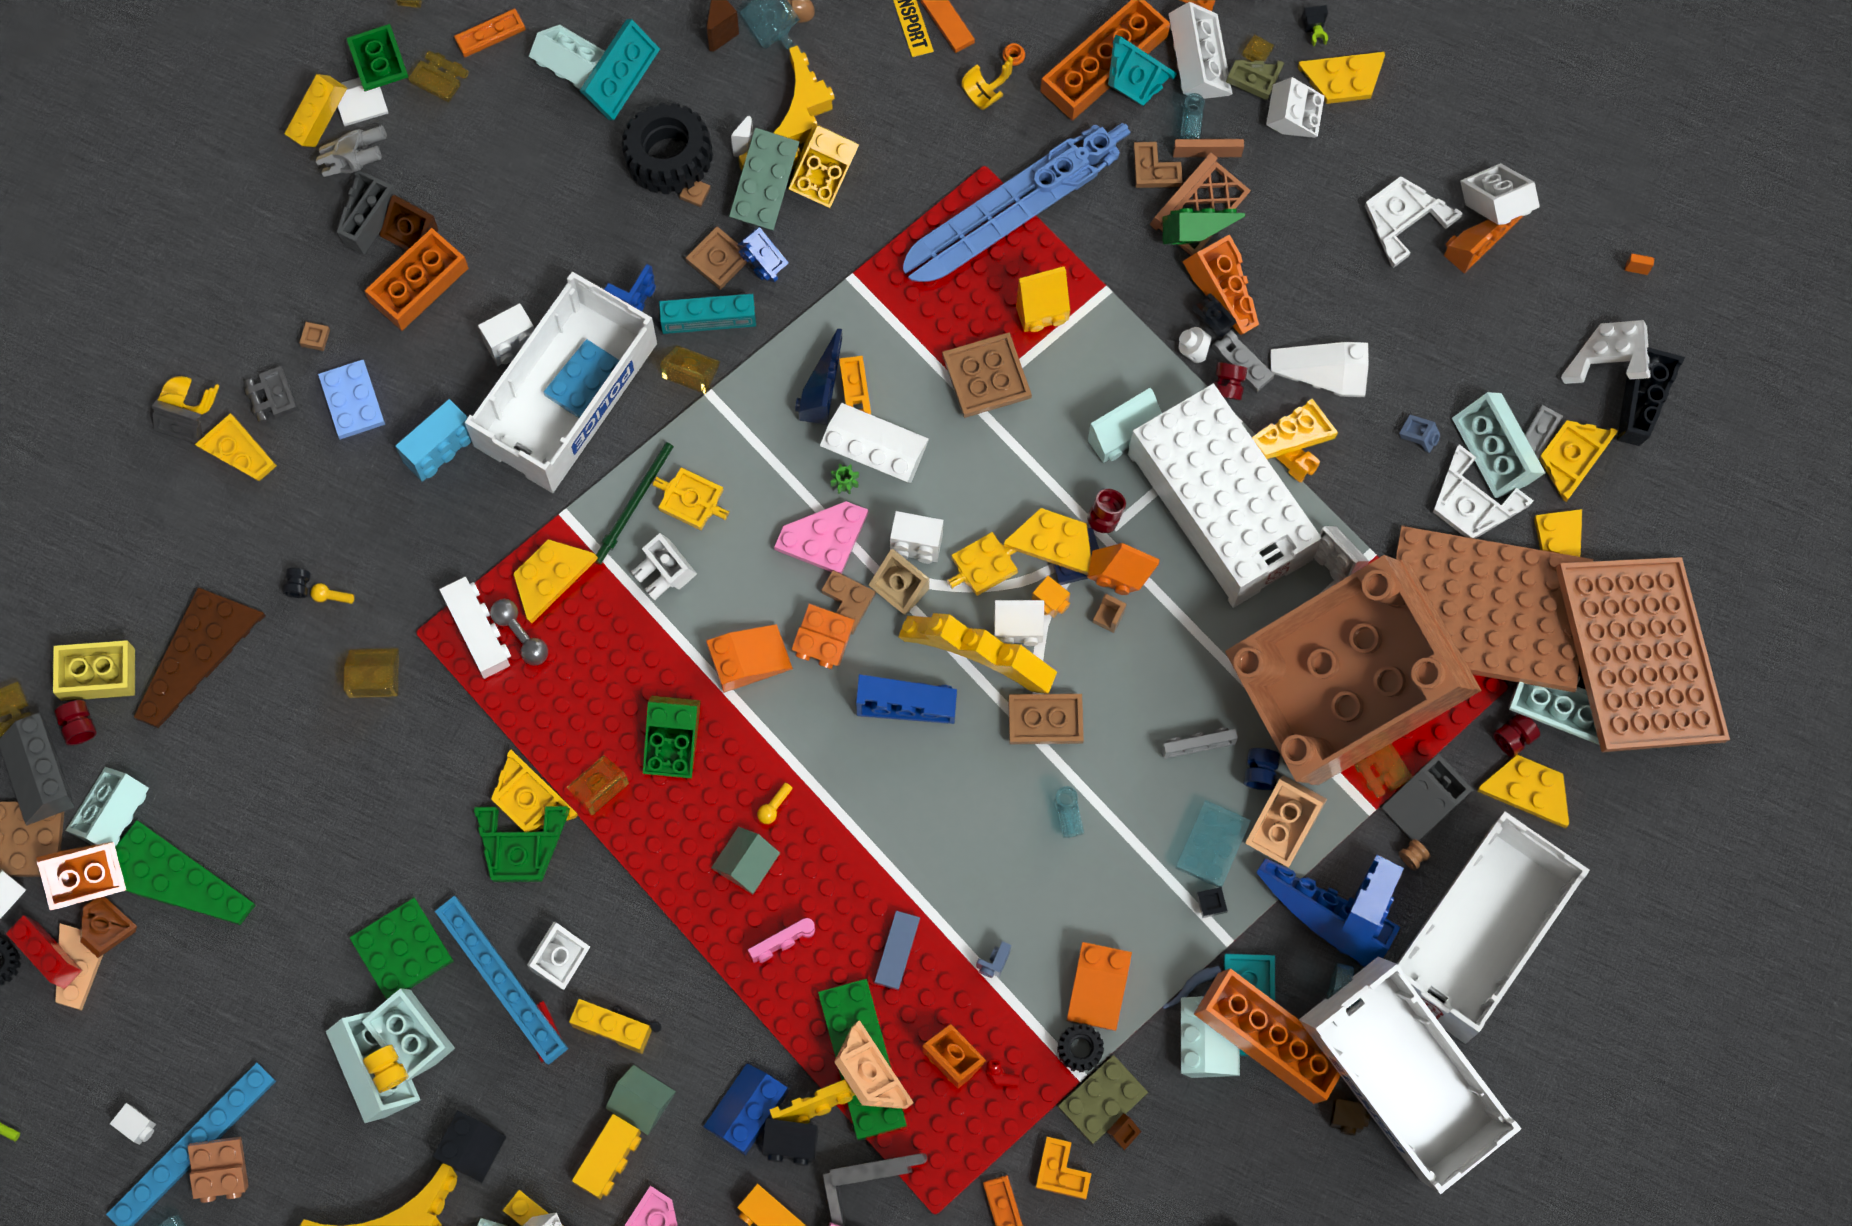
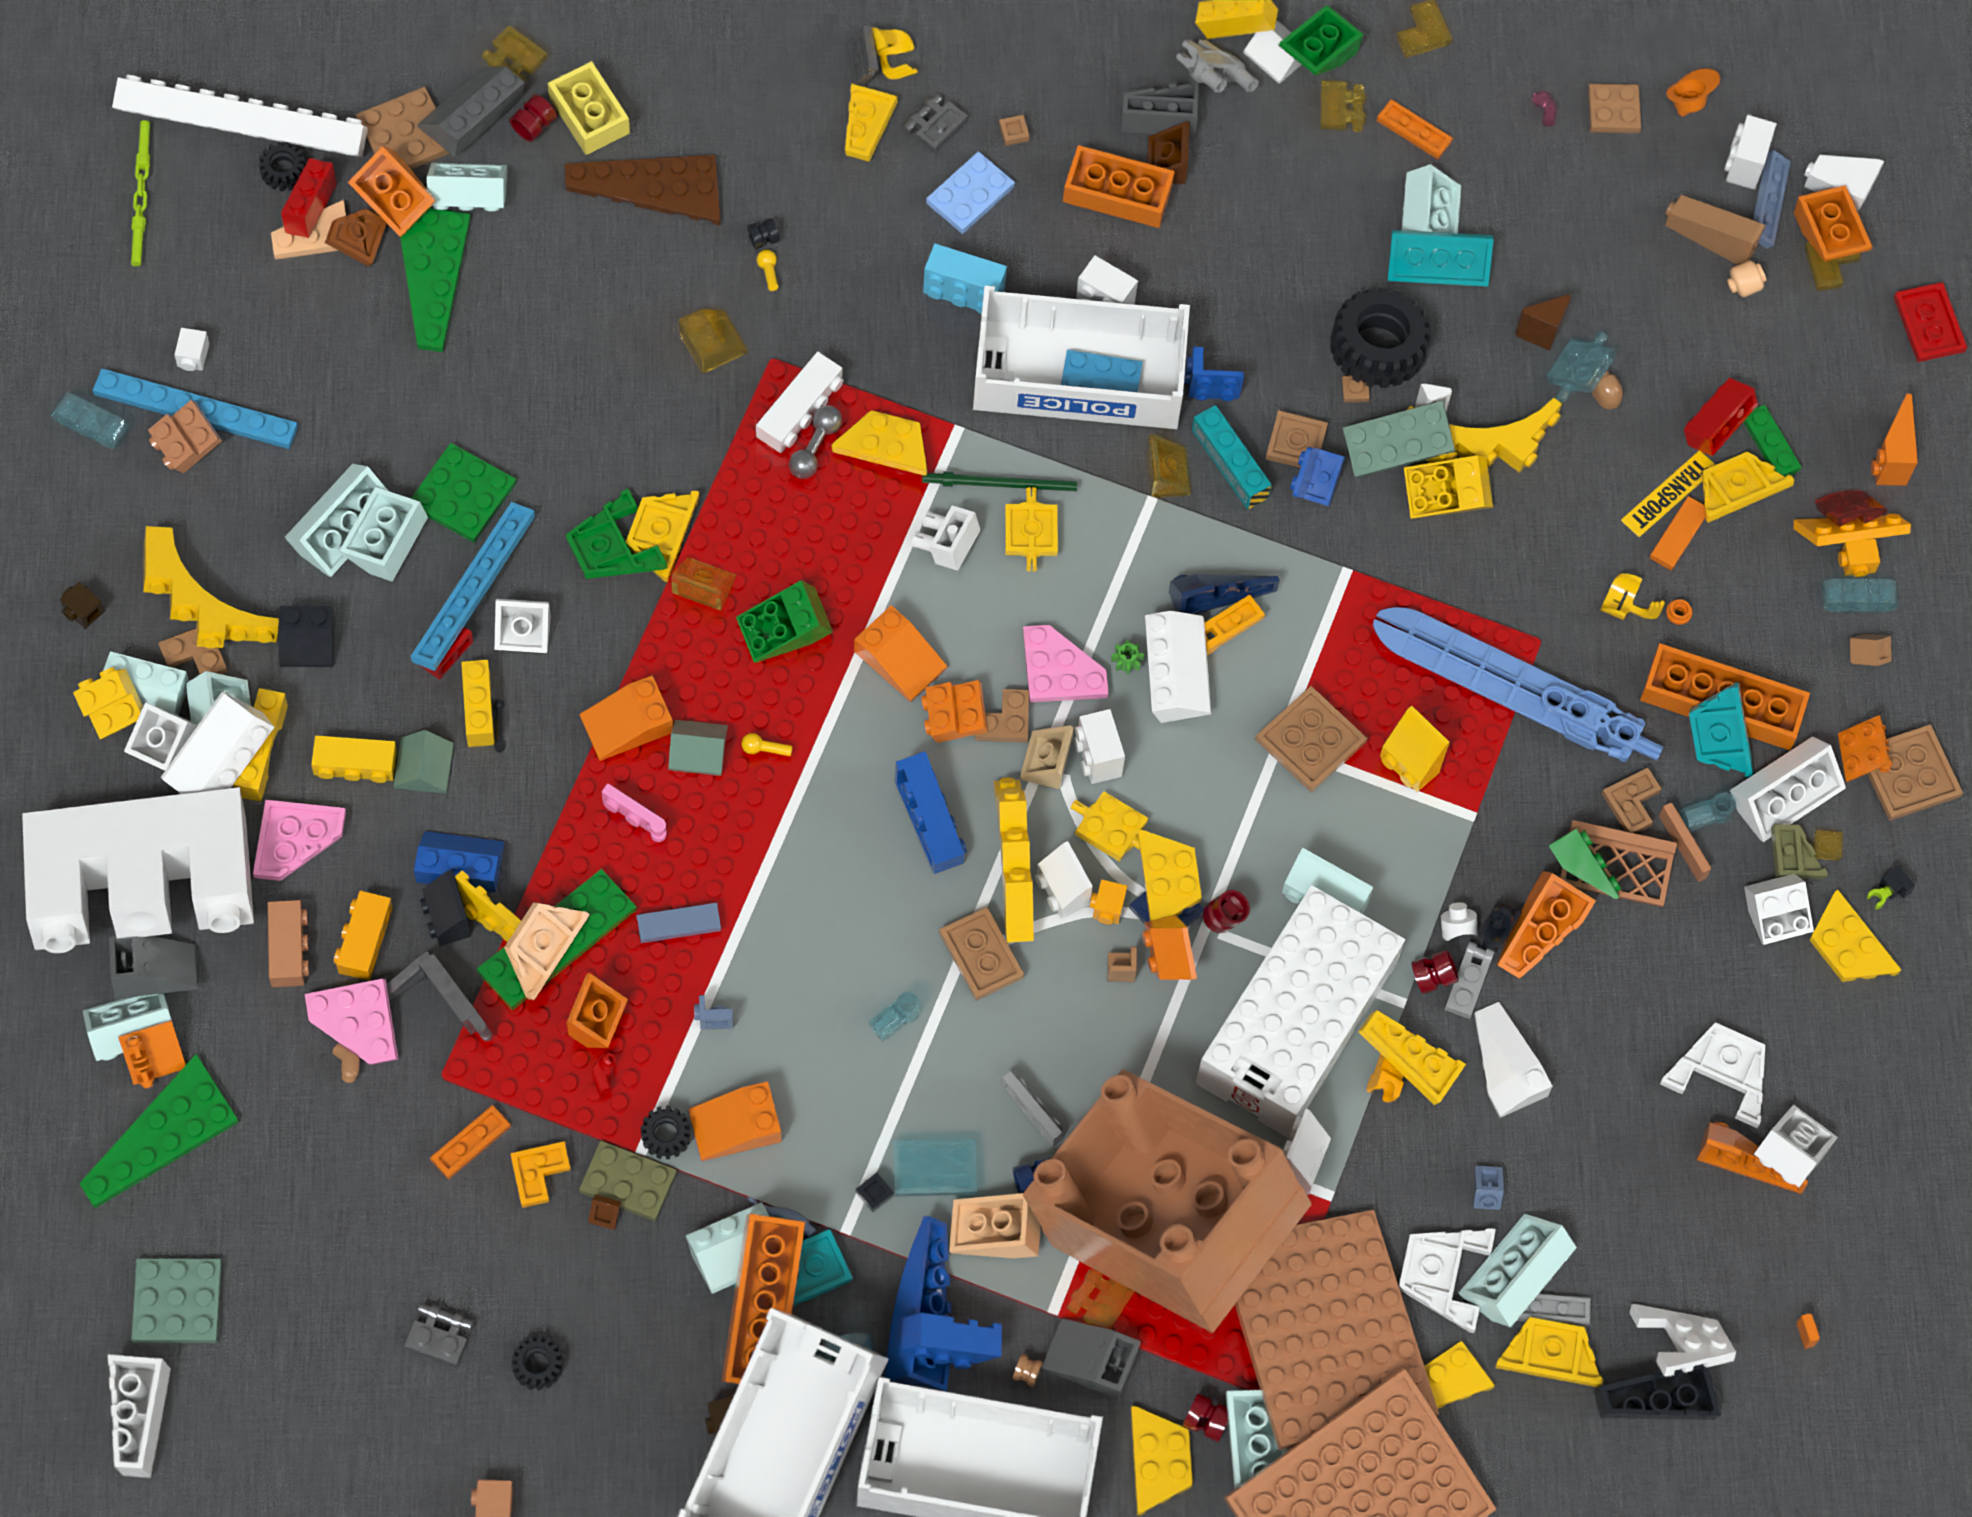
camera: 60 degrees right, 5 degrees down
(385, 1068) = (339, 524): yellow wheel -> none
(692, 907) = (627, 719): none -> orange slope

